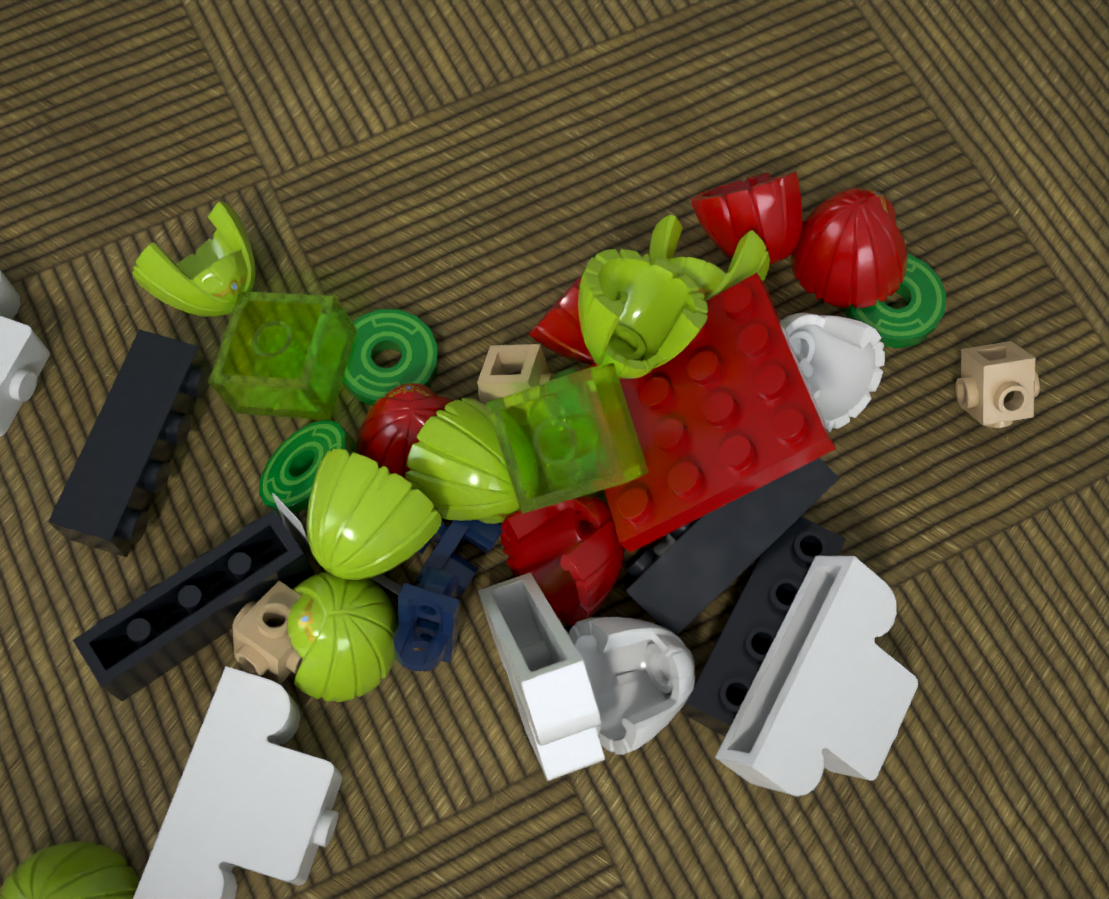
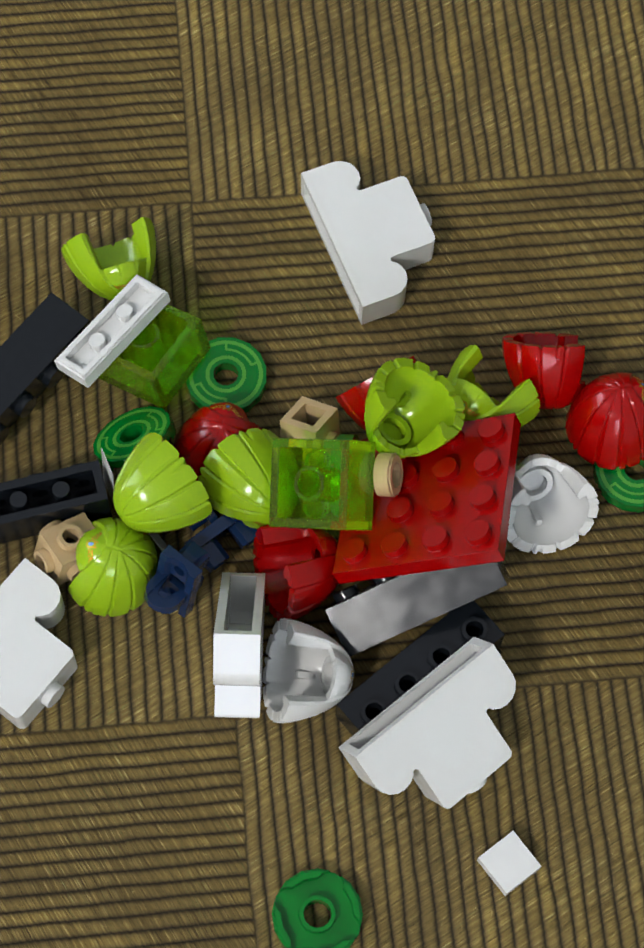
camera: 20 degrees right, 0 degrees up
(231, 348) = (112, 330): none -> white tile
(487, 143) = (369, 234): none -> white brick
(640, 397) = (387, 474): none -> tan tile
(966, 815) = (509, 863): none -> white tile

